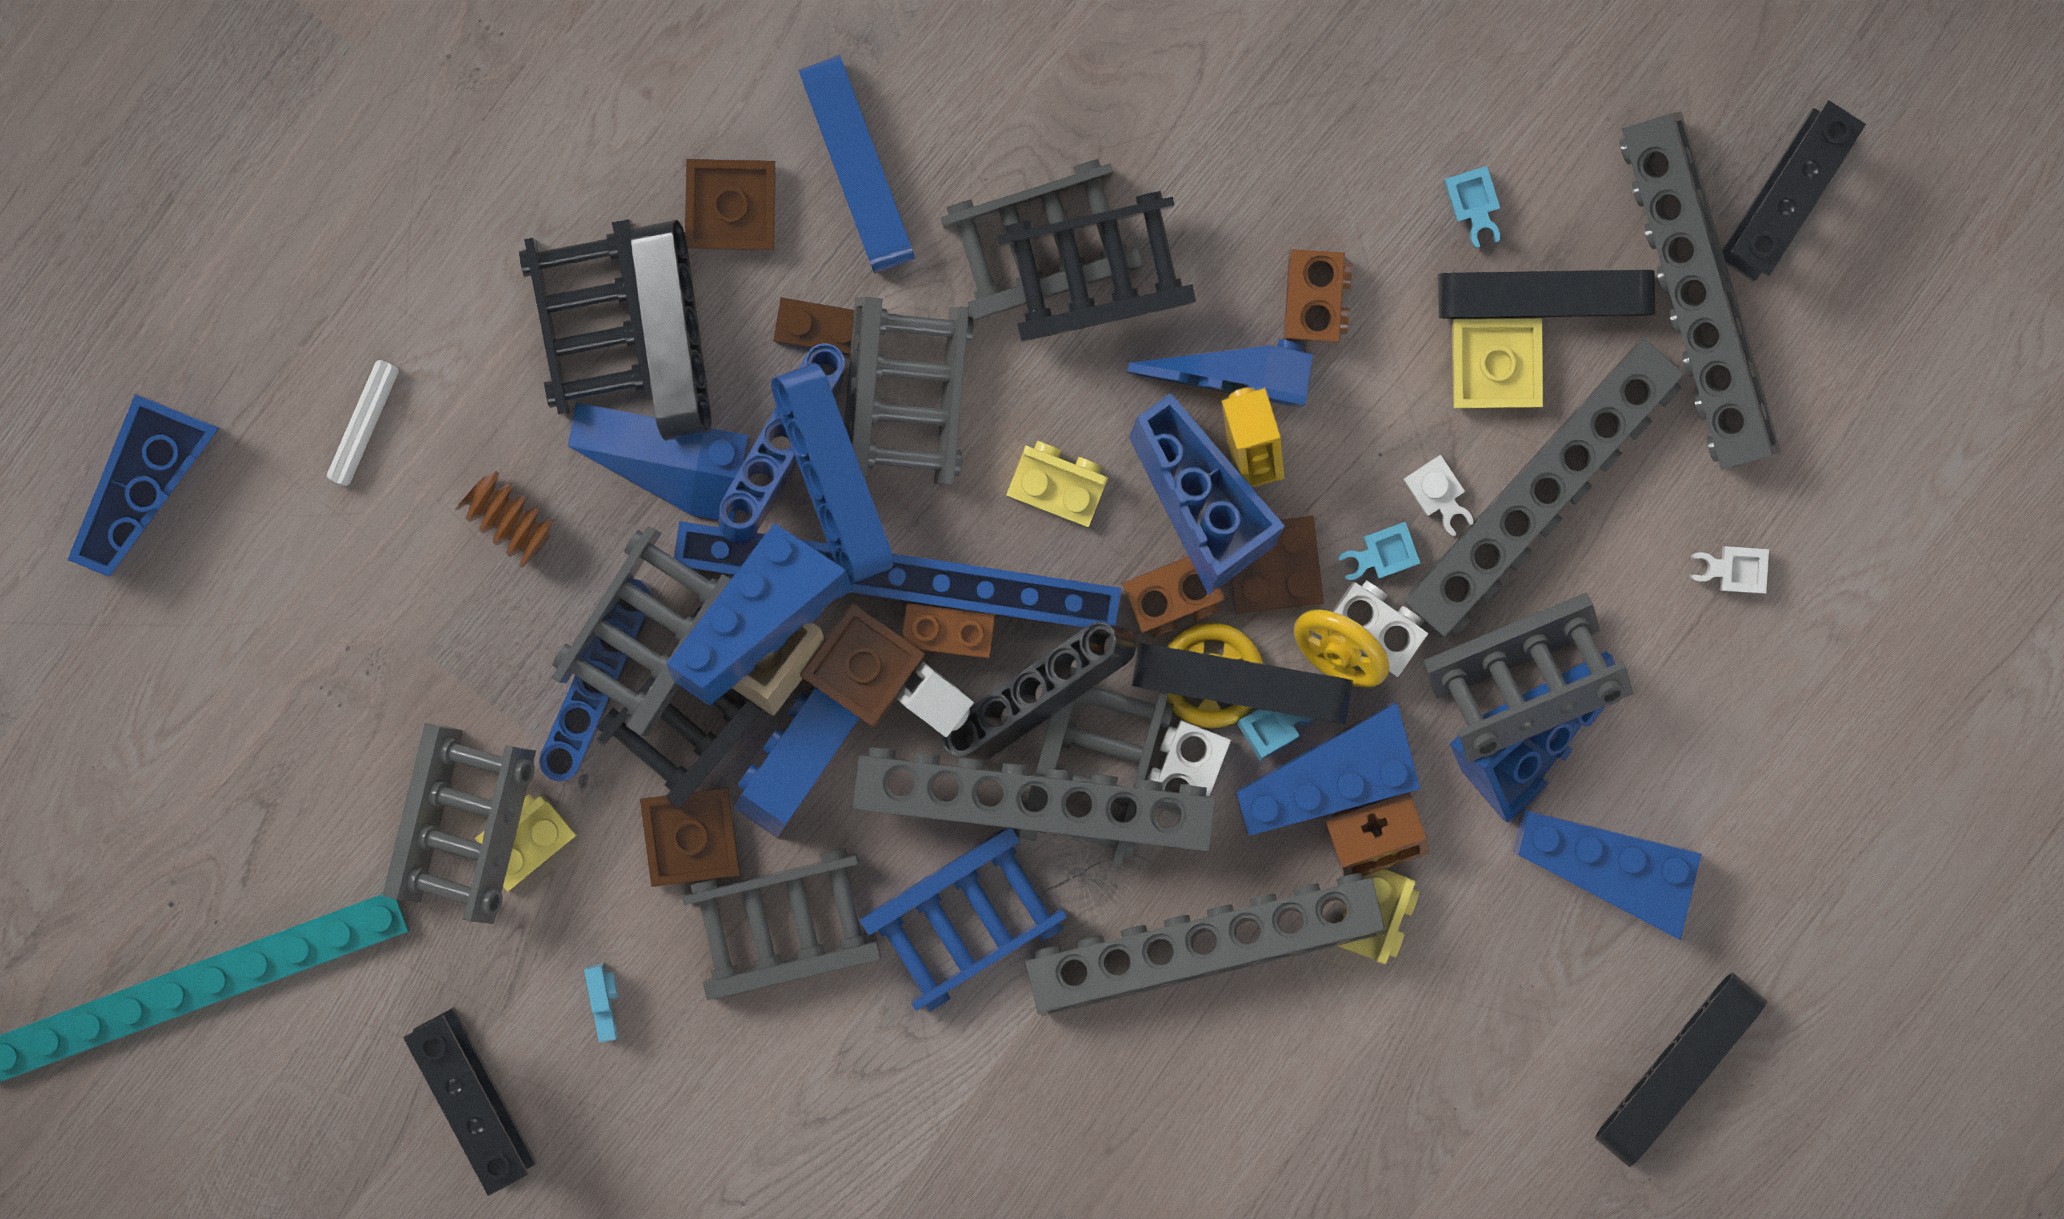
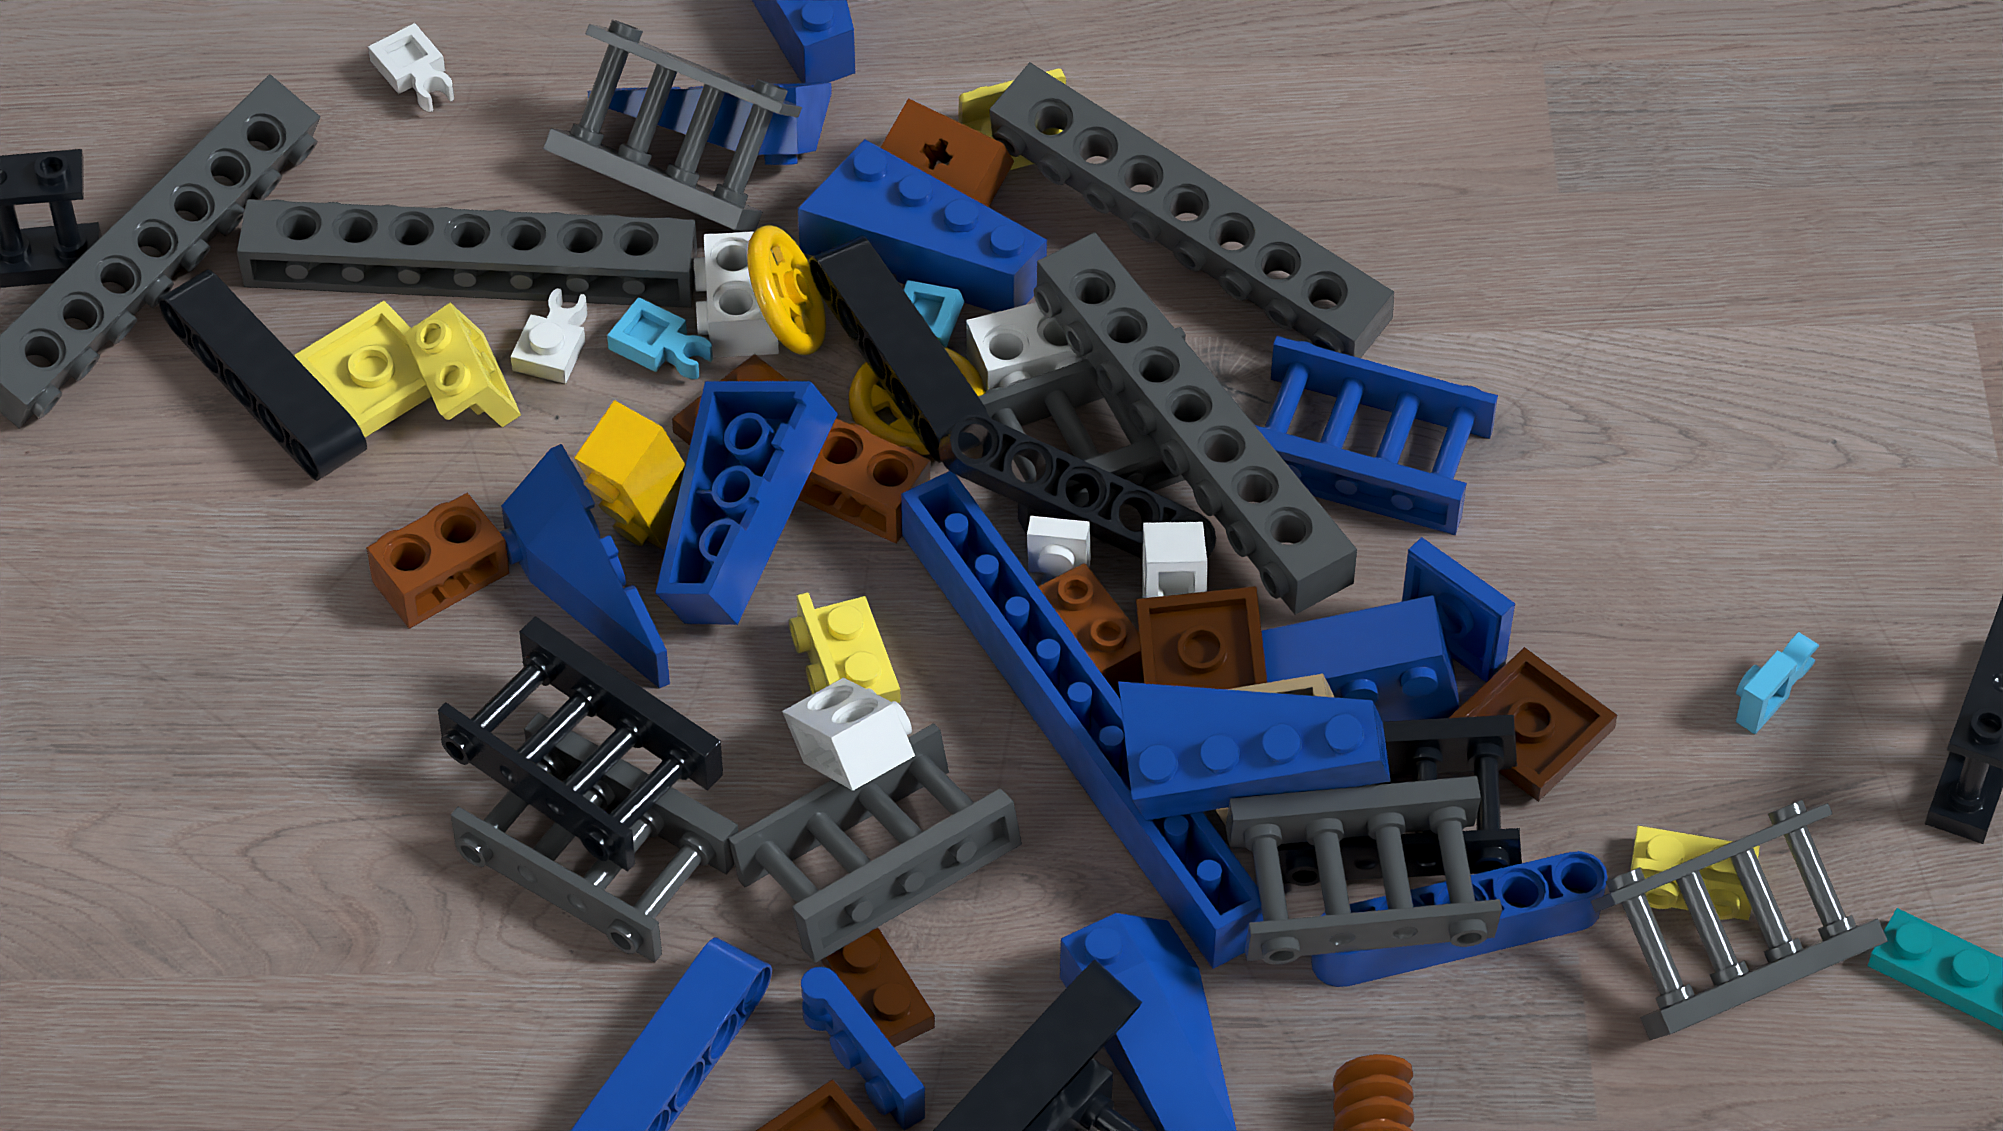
camera: 130 degrees left, 35 degrees down
(768, 966) = (1574, 544): dark grey fence -> none
(770, 461) = (1066, 908): blue beam -> none
(785, 282) = (862, 1045): none -> blue plate
(785, 848) = (1471, 611): none -> blue tile
(831, 472) = (1024, 804): blue beam -> none
(978, 426) = (850, 733): none -> white brick
(1010, 650) = (1057, 546): none -> white plate
(1448, 414) = (460, 367): none -> light yellow bracket
(1473, 198) = (212, 497): medium azure plate -> none

